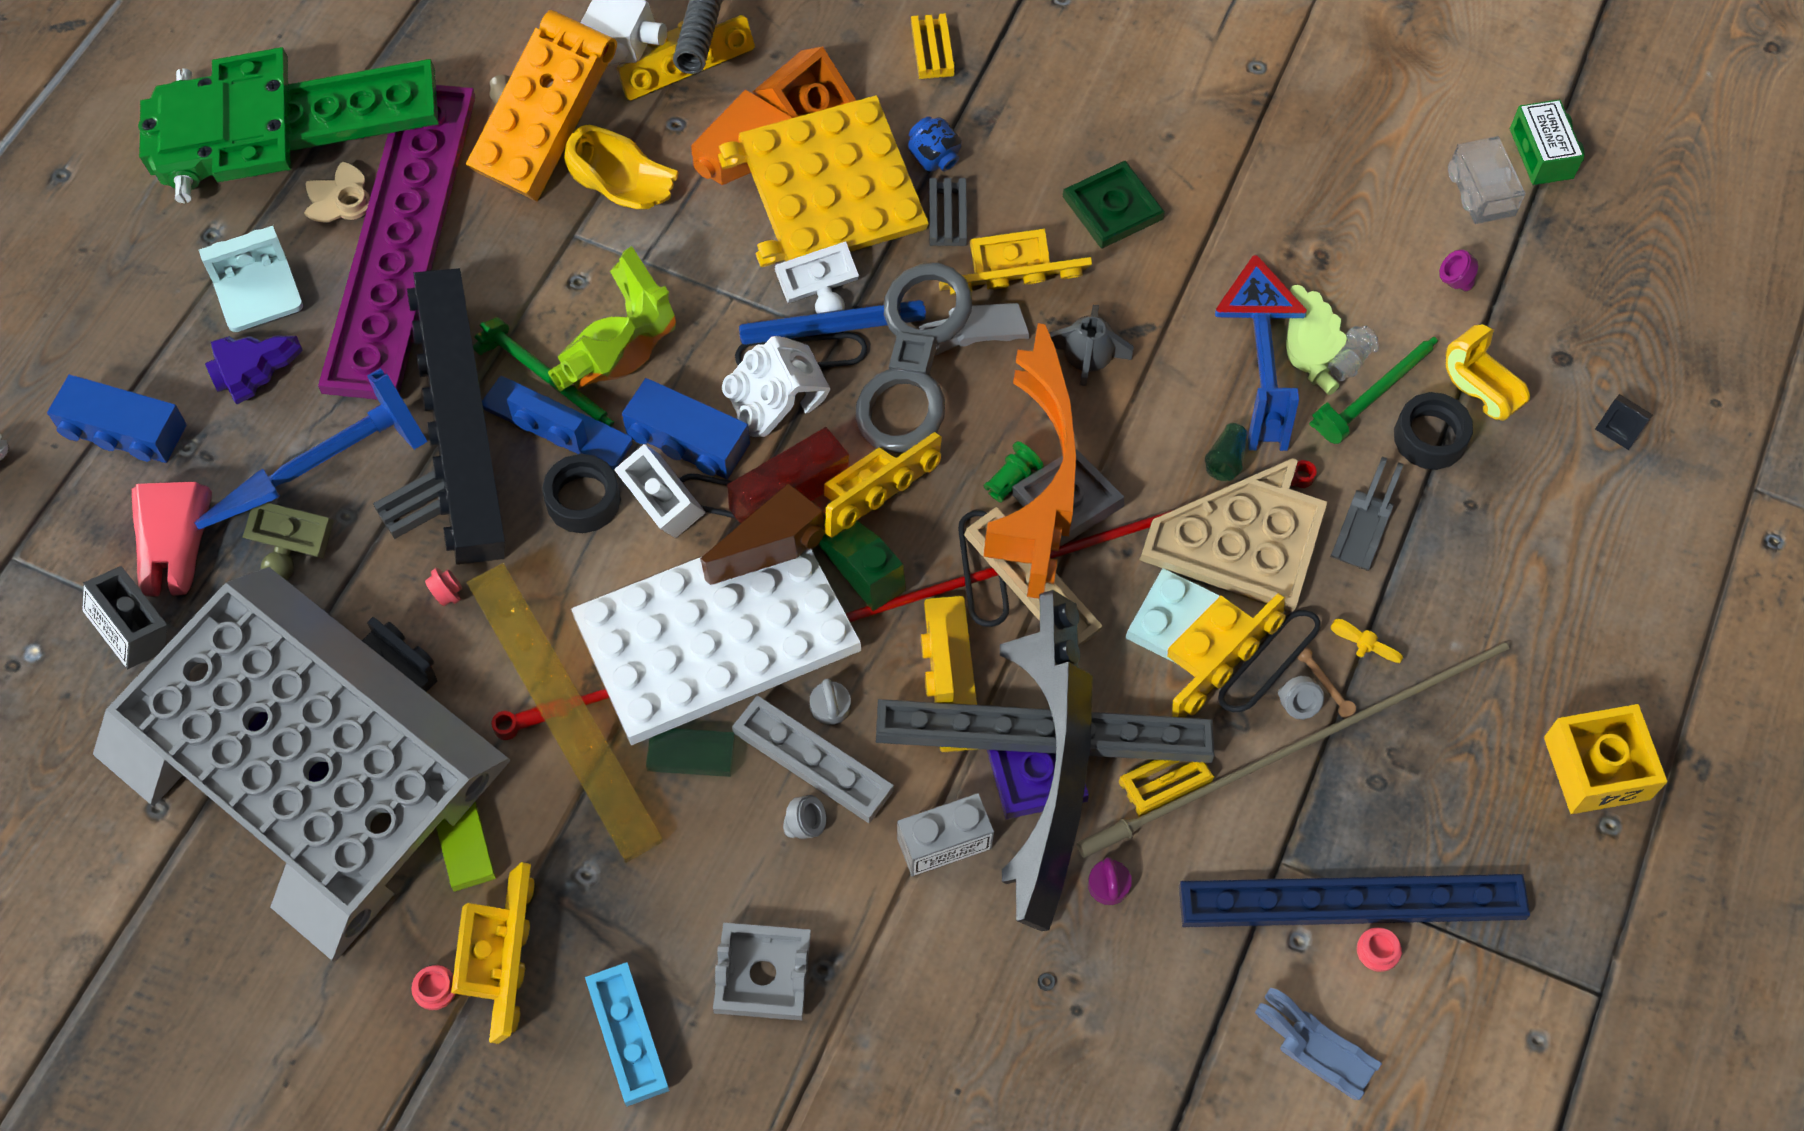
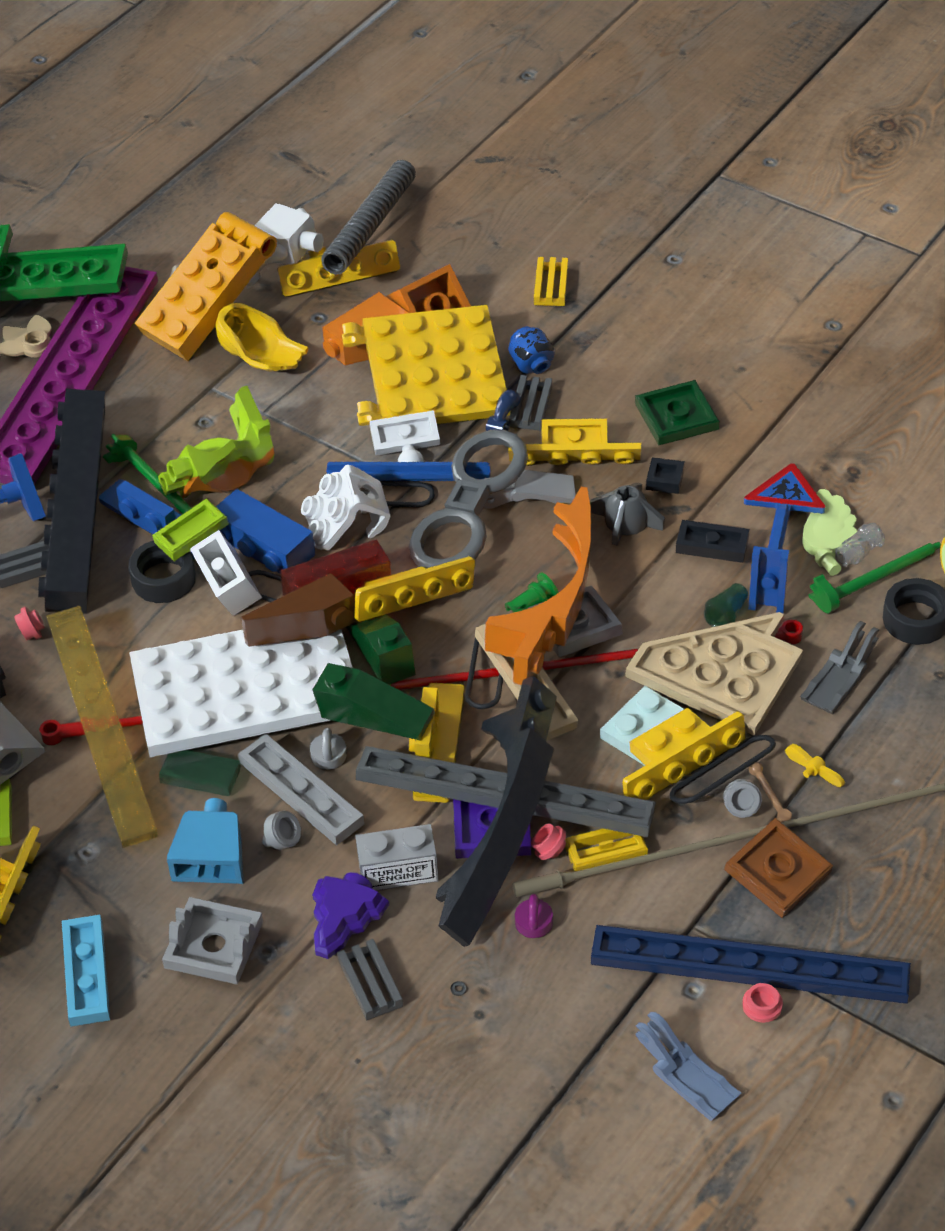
camera: 15 degrees right, 15 degrees down
(606, 441) = (190, 529): none -> lime tile
(727, 850) = (207, 846): none -> dark azure torso
(878, 652) = (369, 703): none -> dark green slope
(900, 911) = (344, 910): none -> dark purple rock
(919, 245) = (506, 402): none -> dark blue arm
(927, 958) = (359, 954): none -> dark grey tile
(1105, 785) = (549, 841): none -> coral plate
(1121, 291) = (665, 475): none -> black plate
(1193, 370) = (712, 541): none -> black plate
(1358, 777) = (778, 867): none -> dark orange tile

